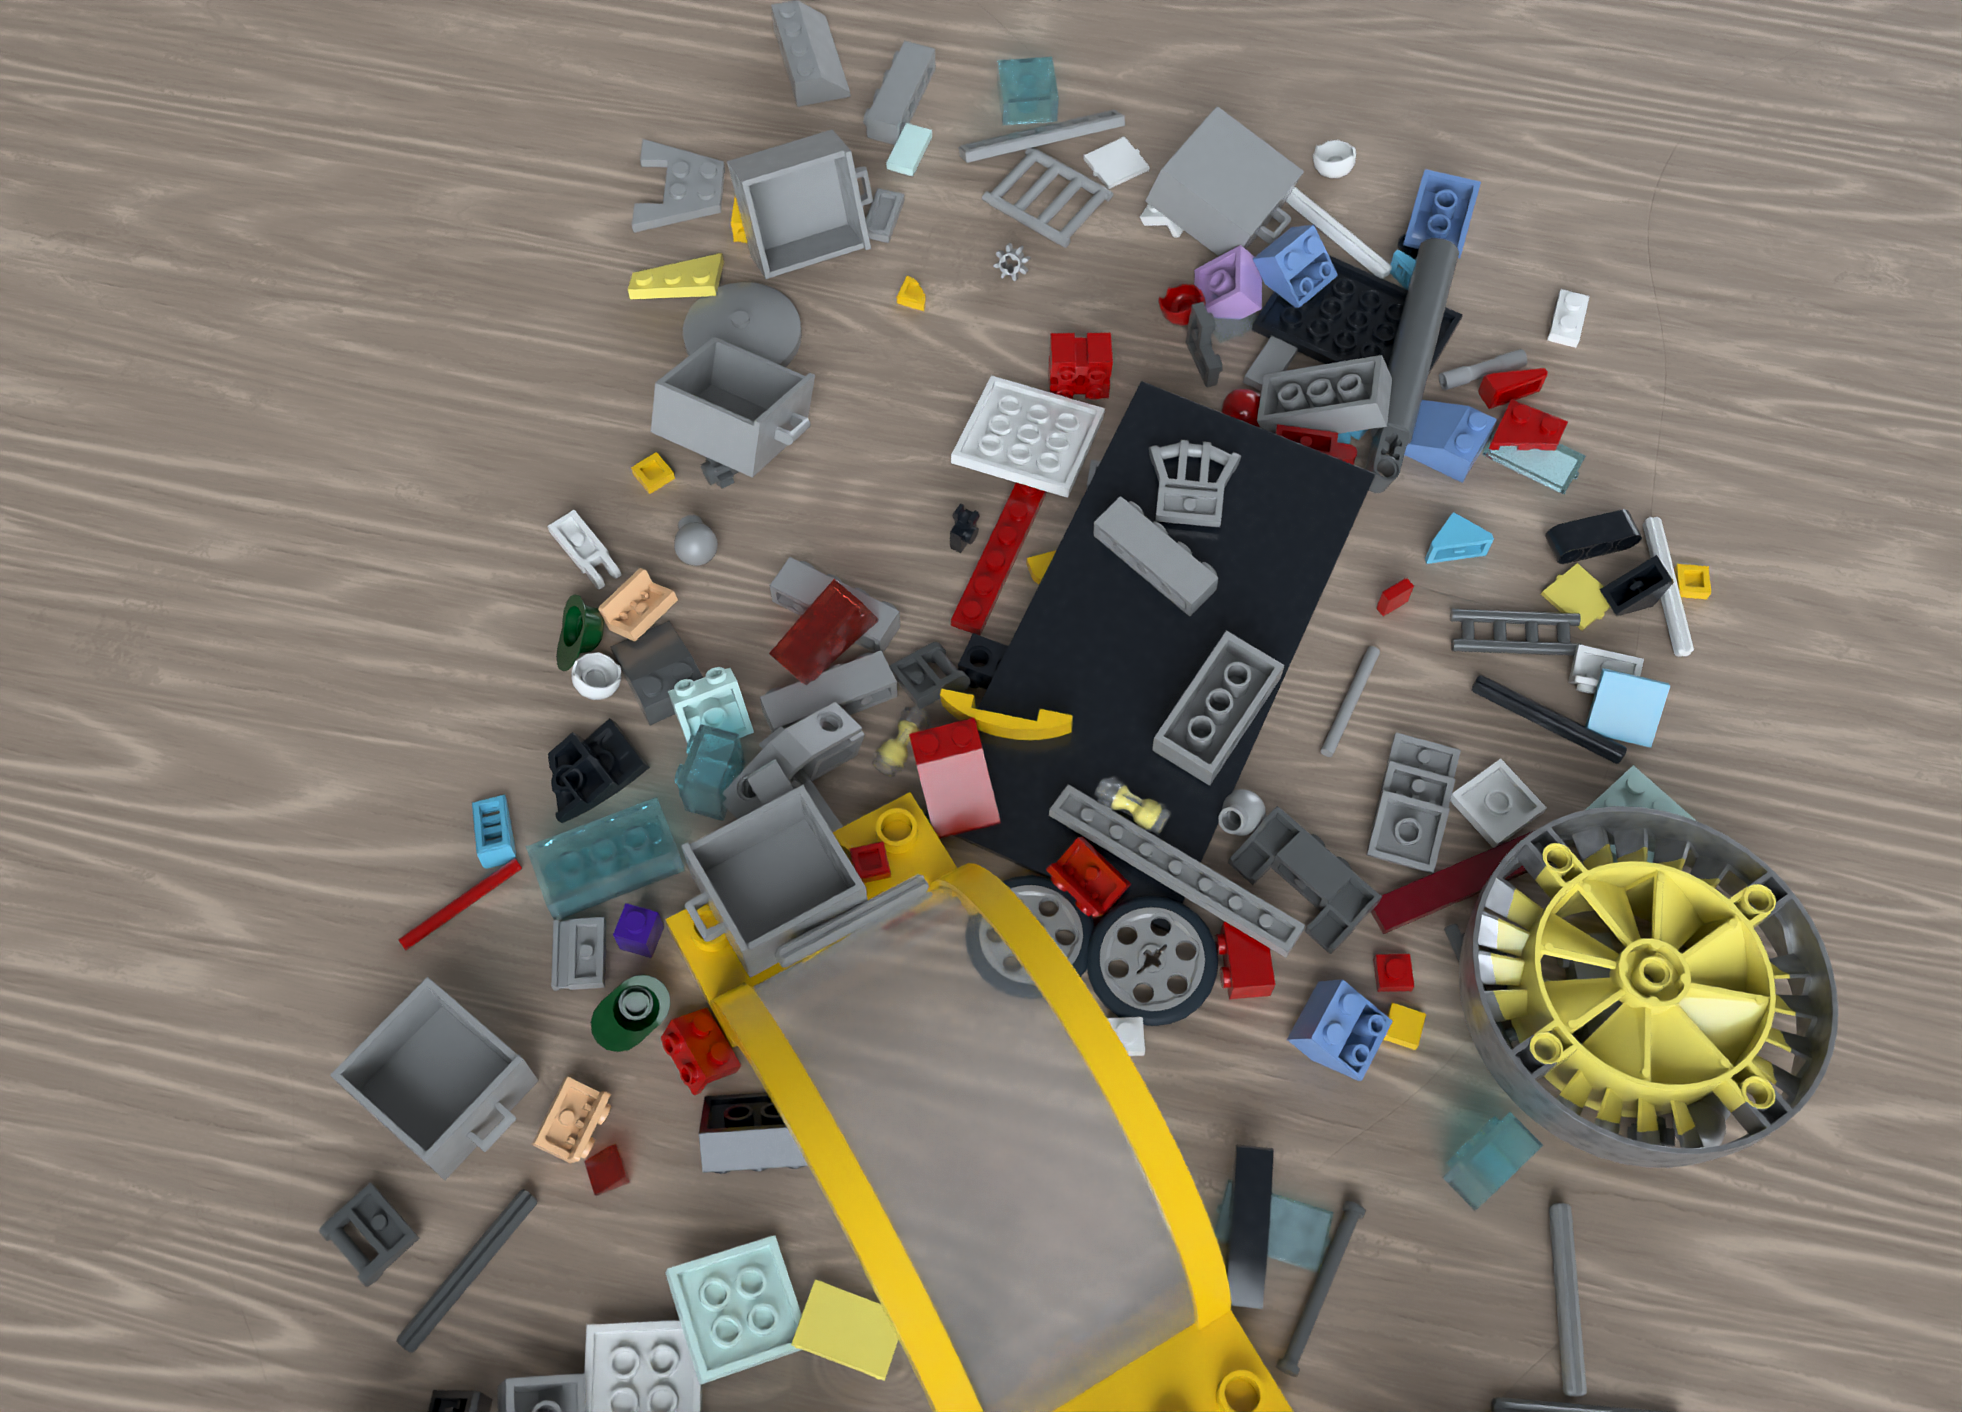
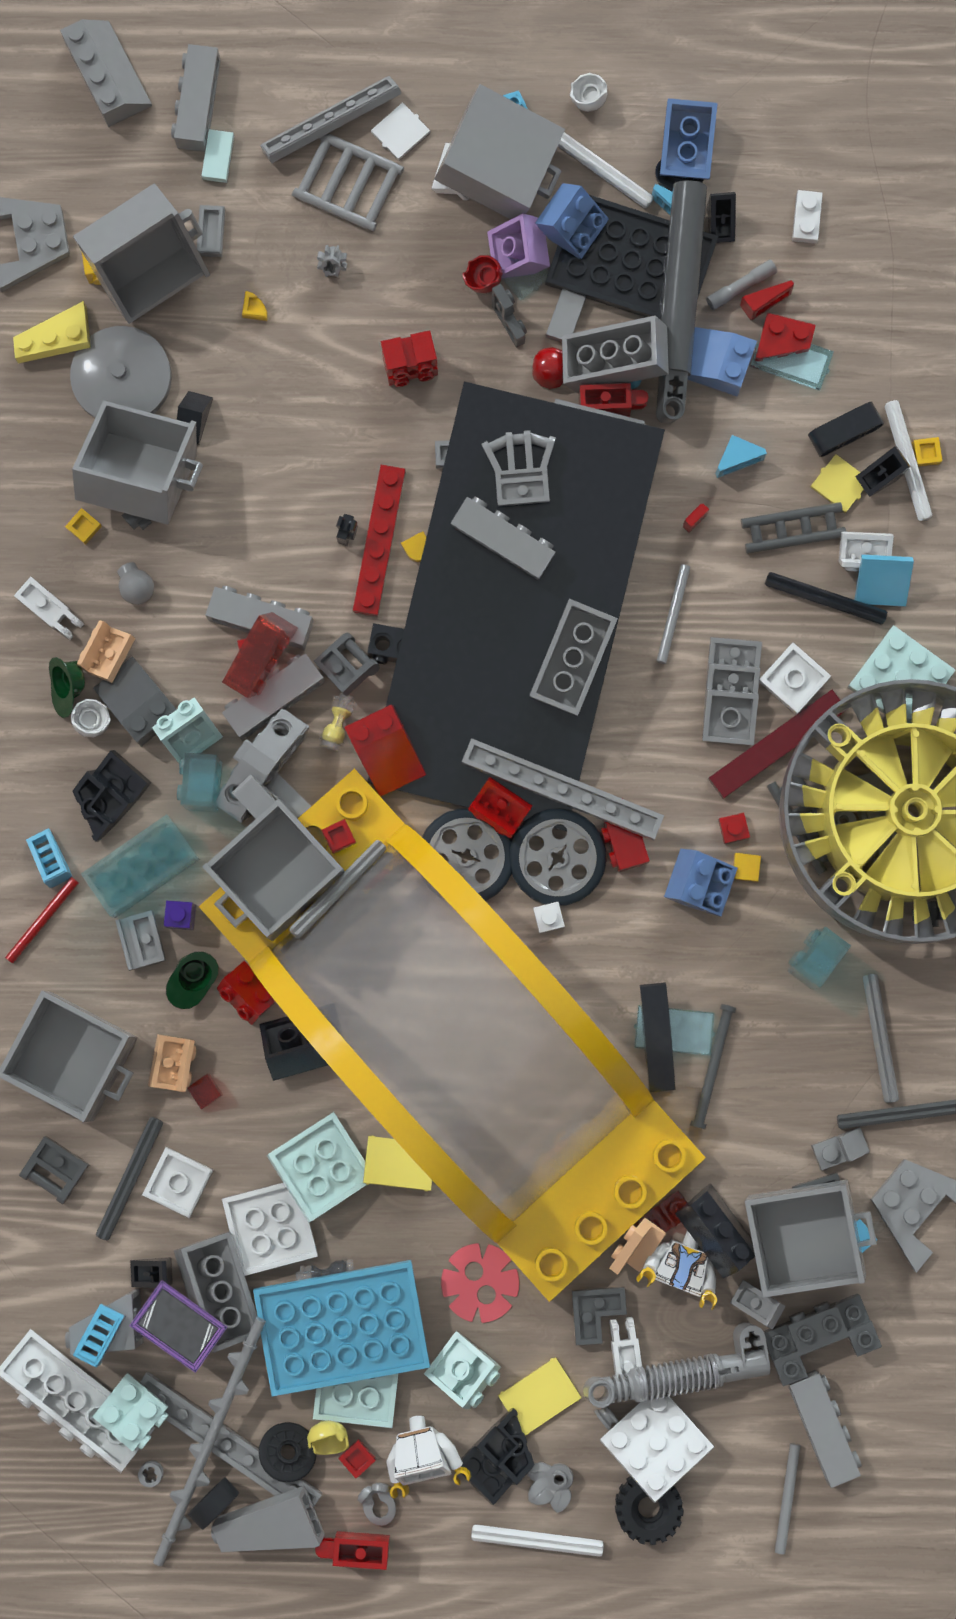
camera: 10 degrees left, 20 degrees up
(533, 1290) = (177, 1182): none -> white tile
(824, 381) = (195, 408): none -> black slope
(1027, 90) = (308, 73): clear light blue brick -> none
(1028, 436) = (380, 432): white plate -> none
(1048, 724) = (445, 695): yellow slope -> none
(1145, 812) = (534, 748): clear piece -> none
(1242, 812) = (604, 730): light grey piece -> none
(1312, 871) = (663, 764): dark grey bracket -> none
(1470, 294) = (722, 216): none -> black slope

